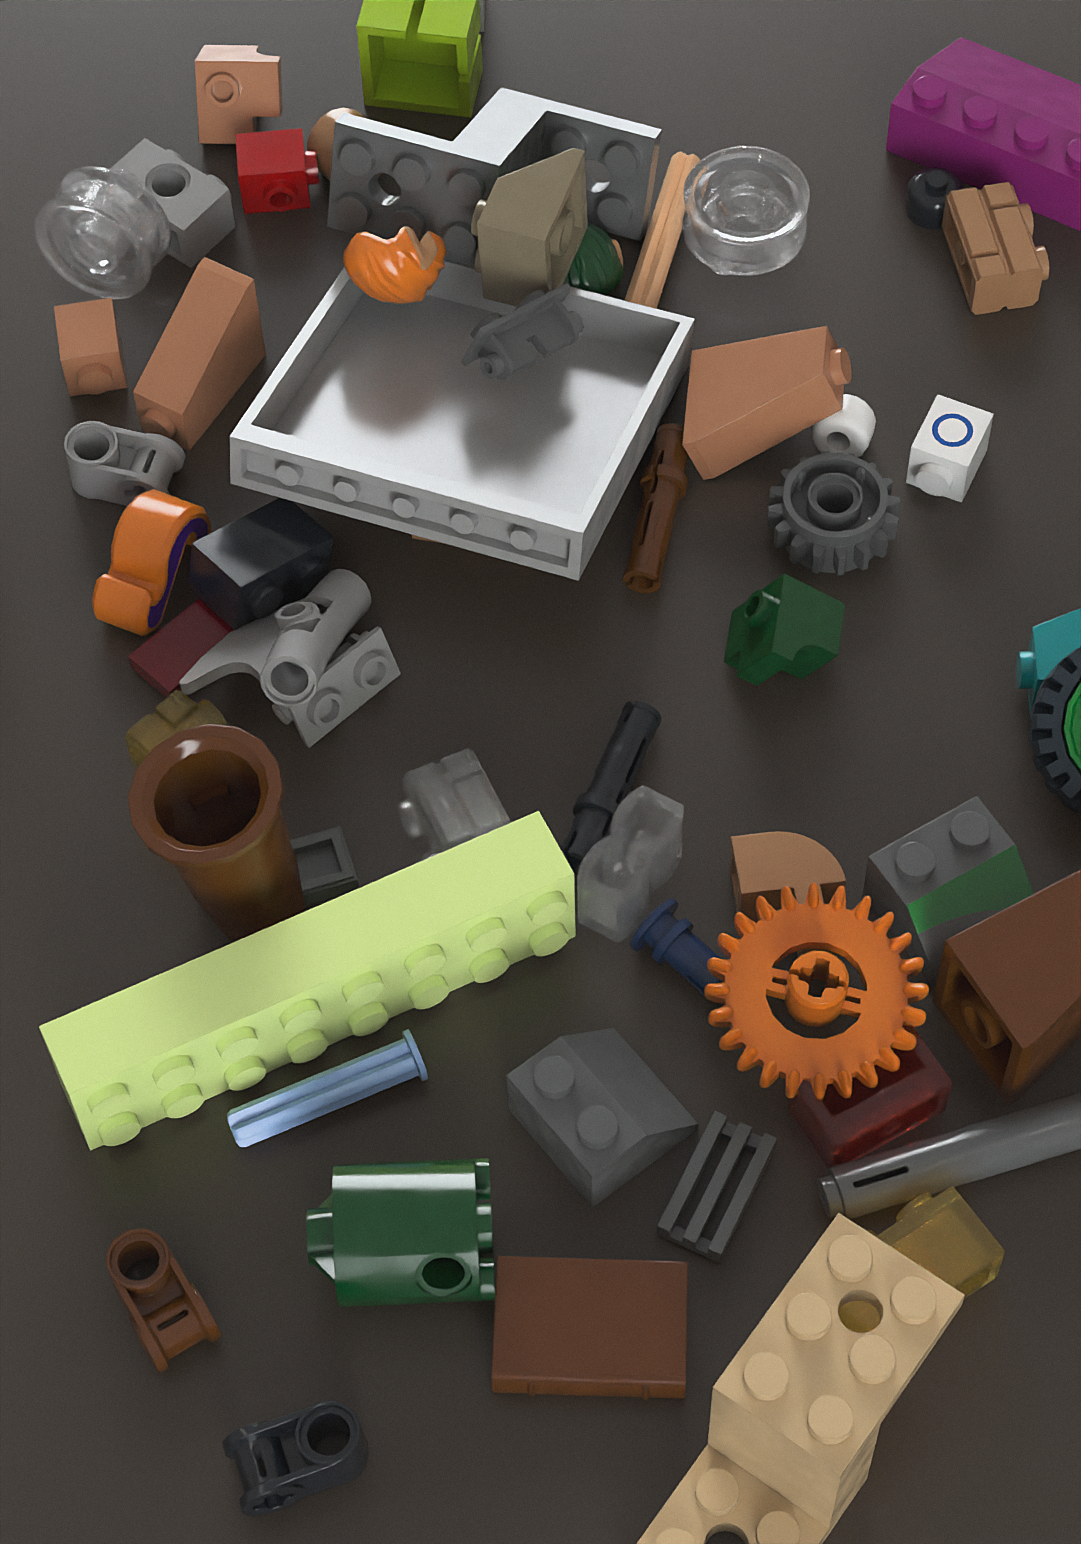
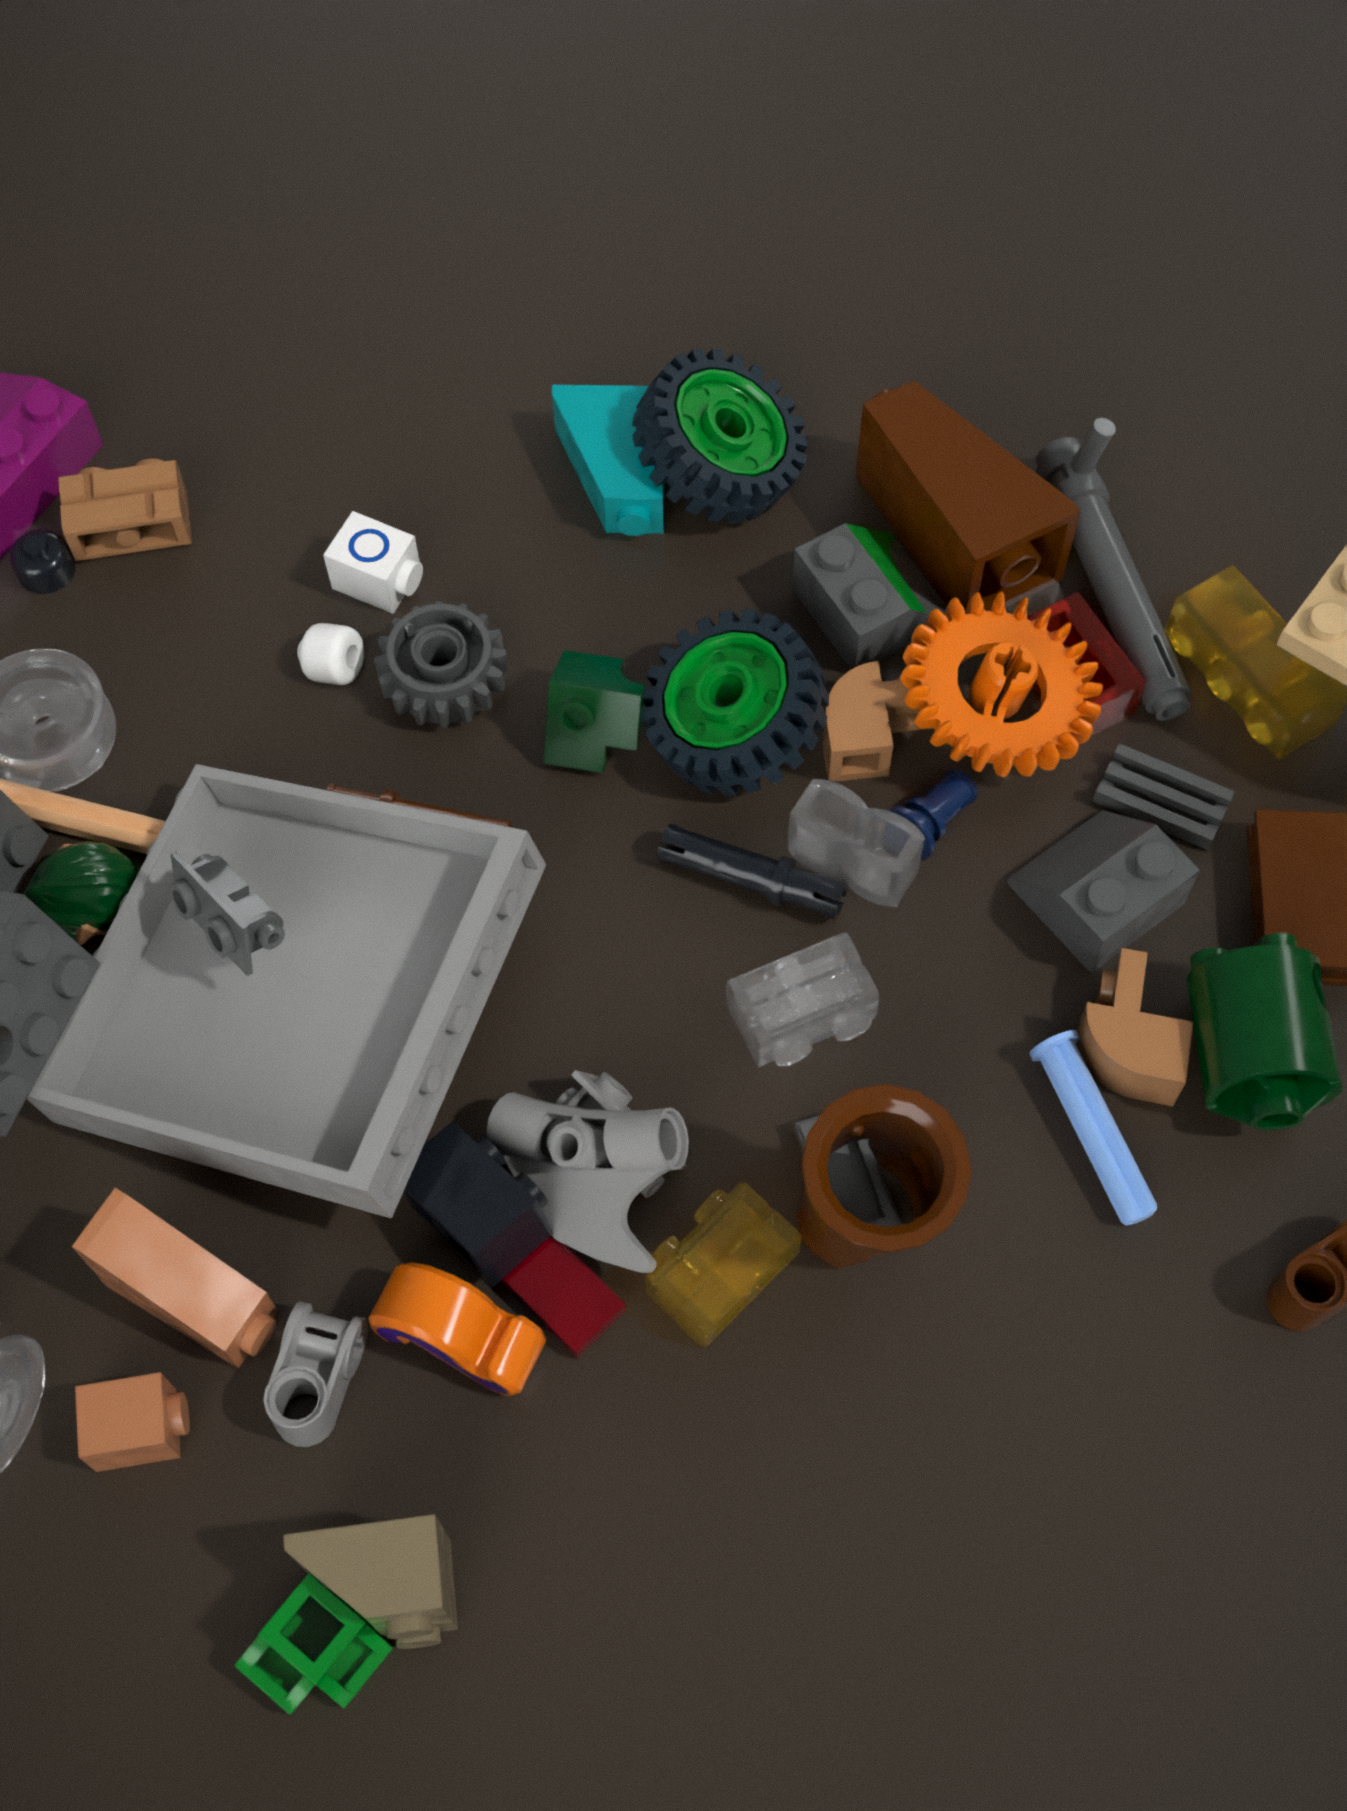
camera: 90 degrees left, 5 degrees up
(313, 981) = (1023, 1144): yellowish green brick -> none
(396, 267) = (105, 1038): orange hair -> none
(417, 1110) = (1130, 1049): none -> medium nougat brick
(531, 227) = (102, 883): dark tan slope -> none
(760, 394) = (298, 710): nougat slope -> none
(789, 752) = (775, 712): none -> wheel

